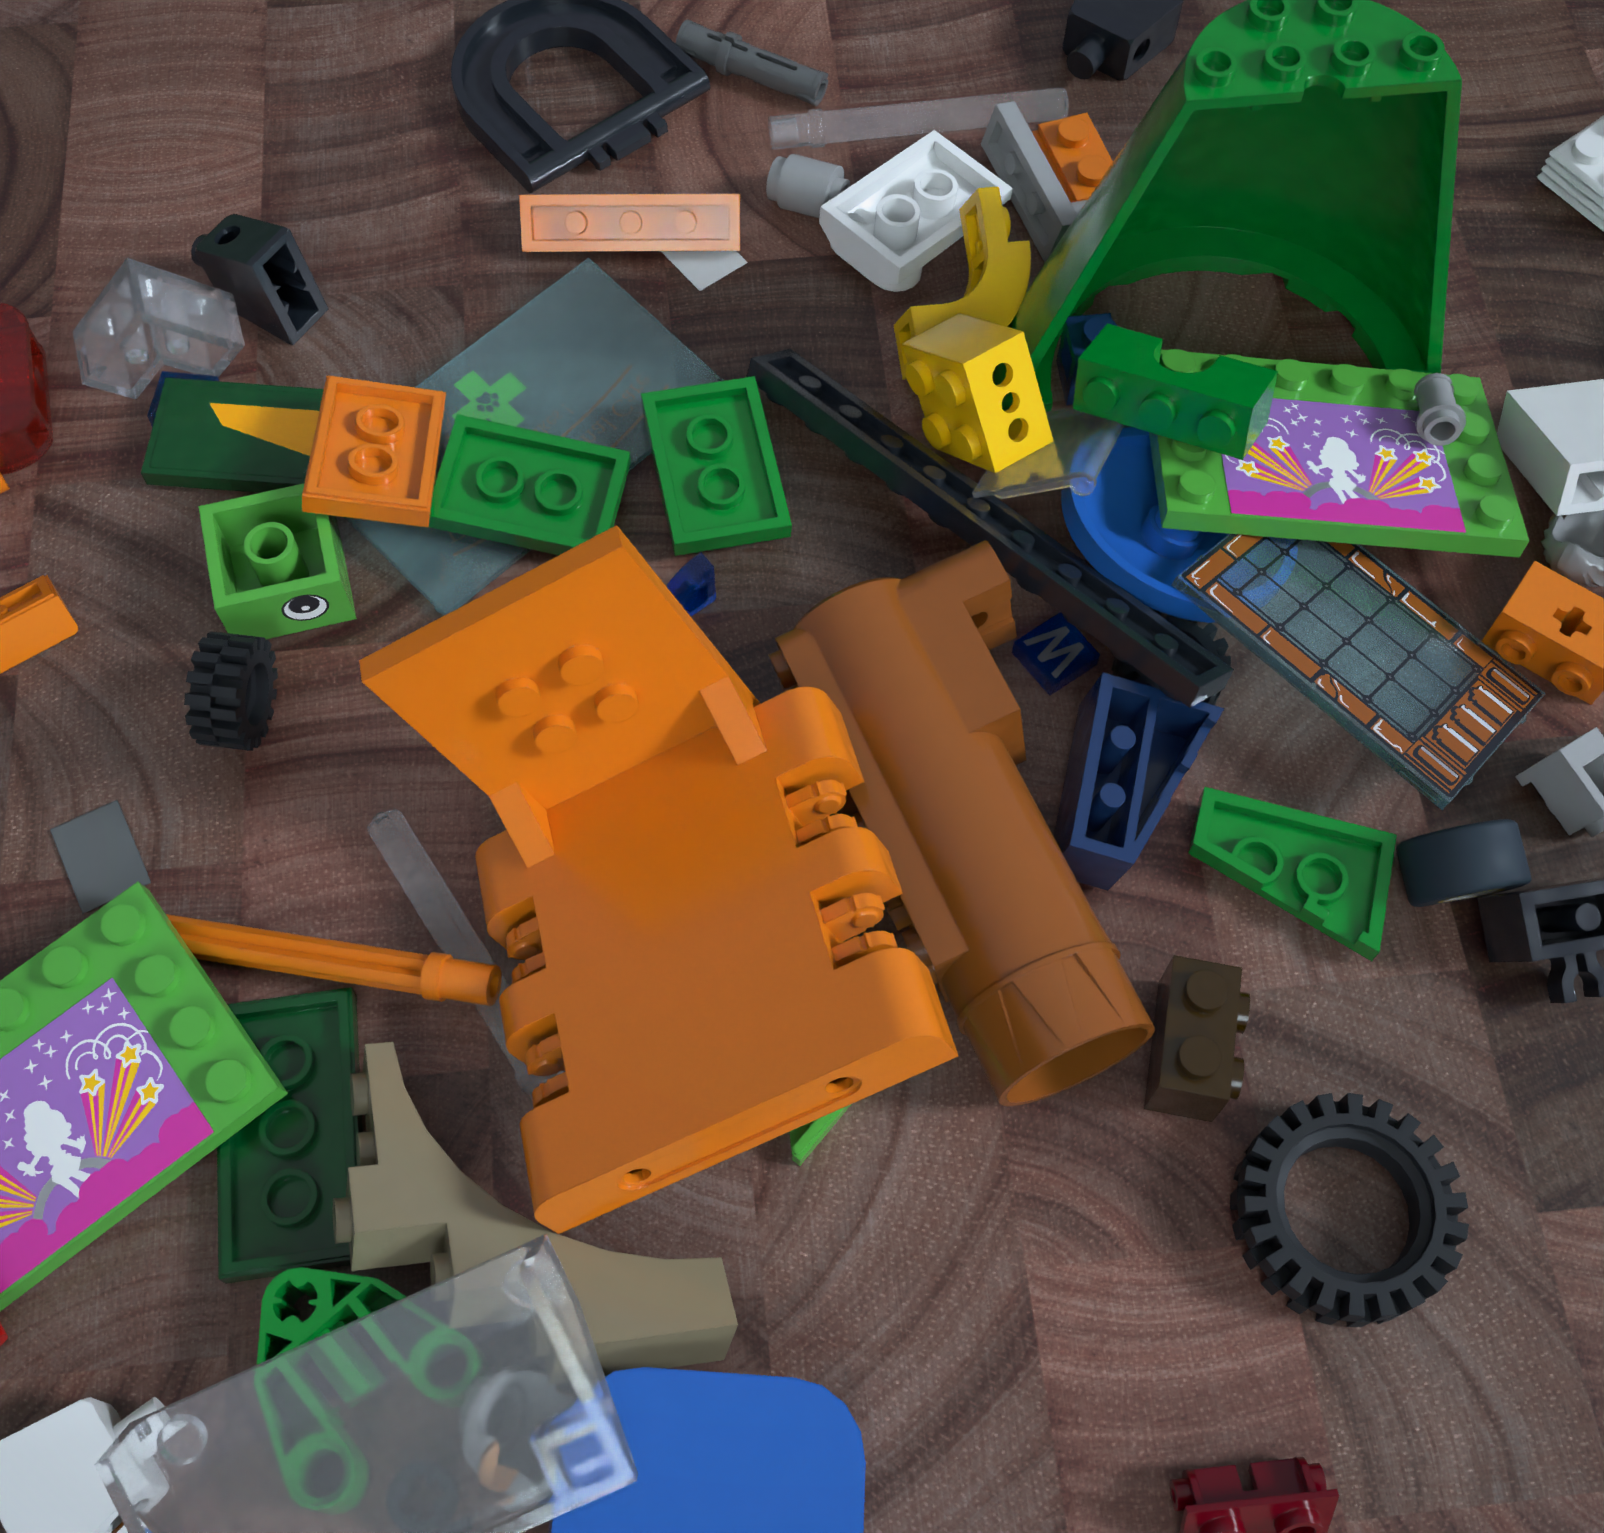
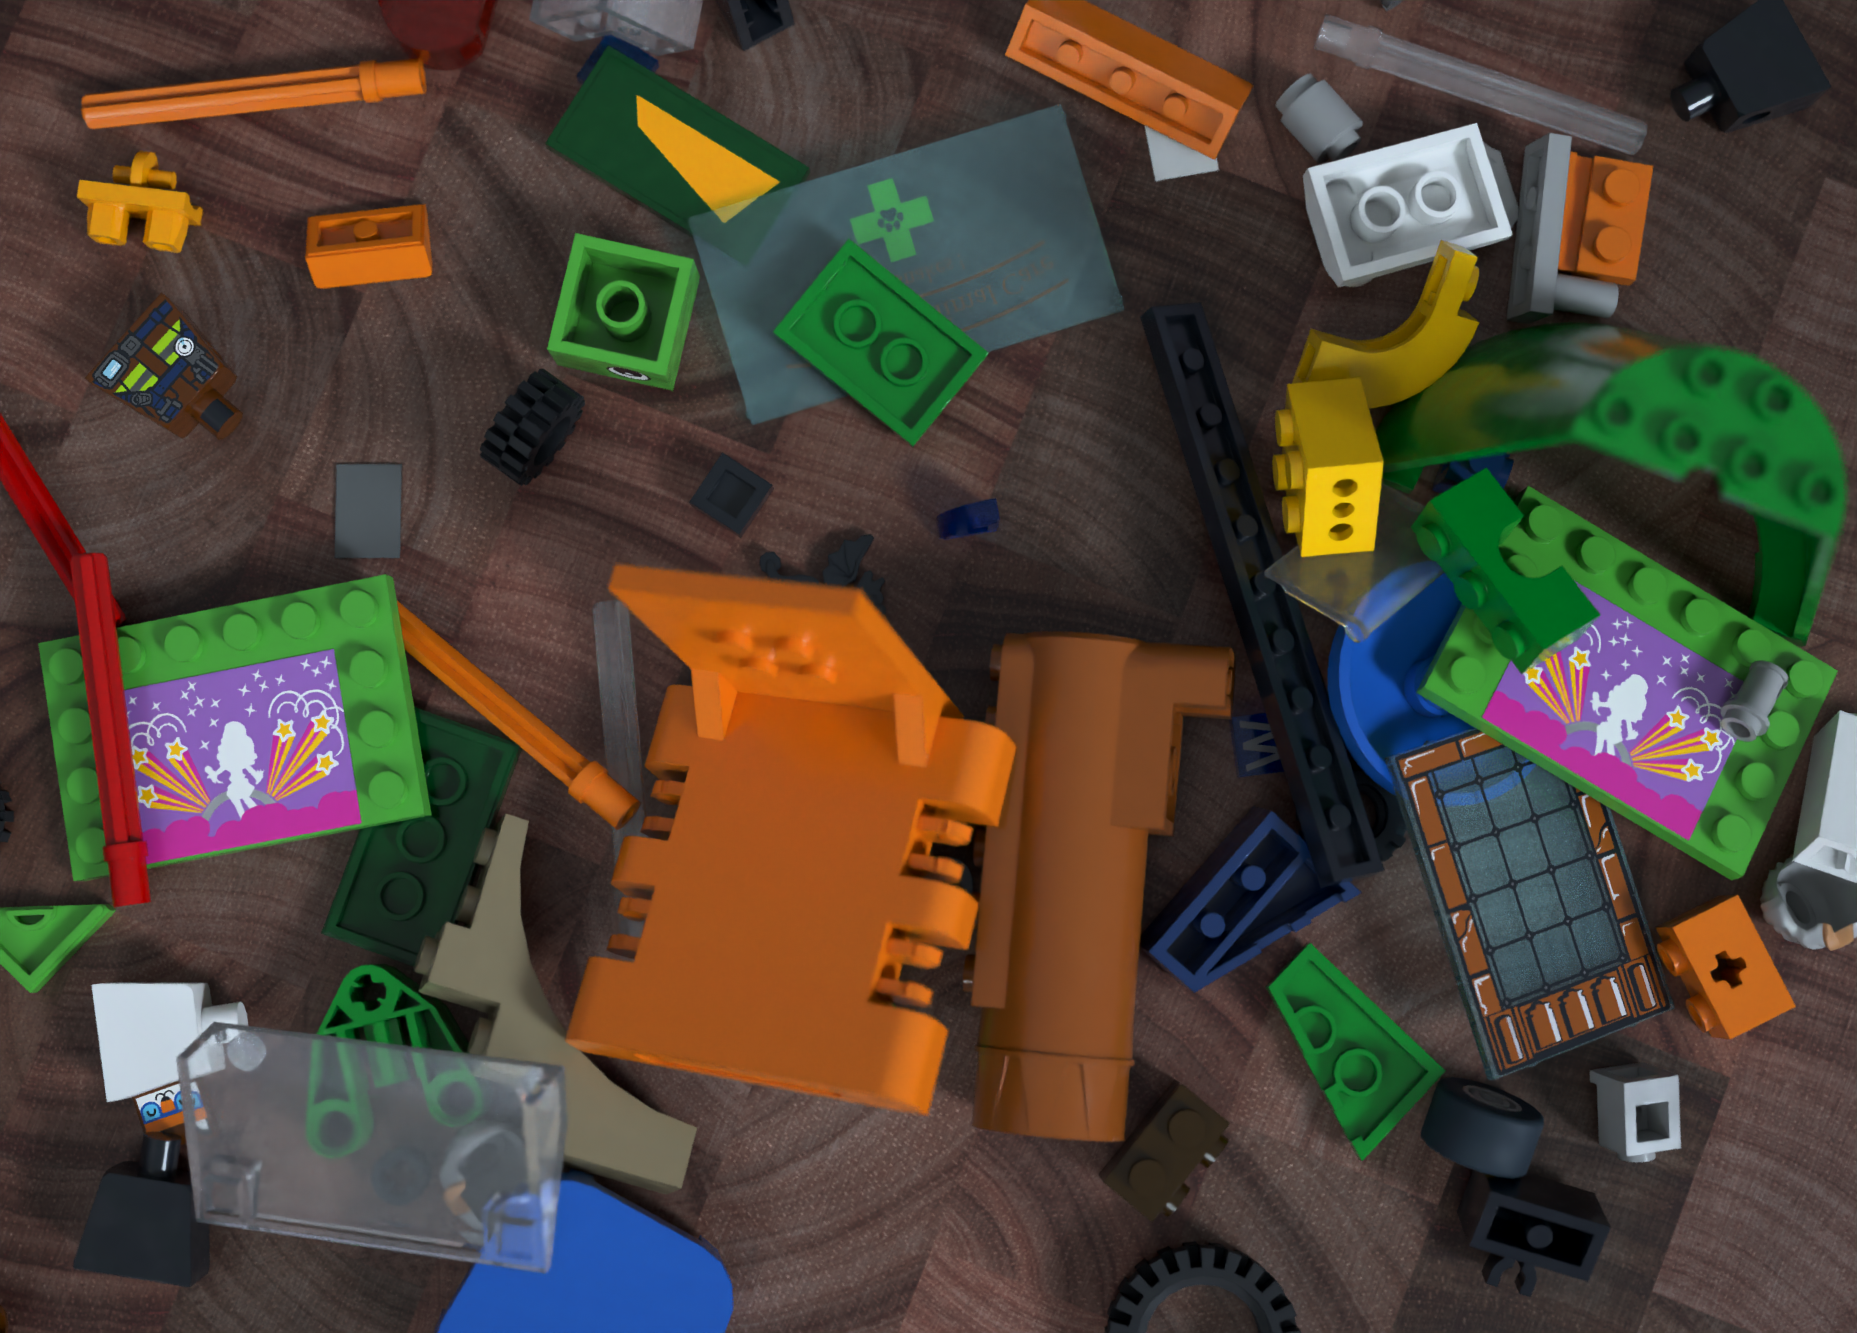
camera: 30 degrees right, 20 degrees up
(375, 452) = (756, 247): orange tile -> none
(715, 466) = (1062, 399): green plate -> none

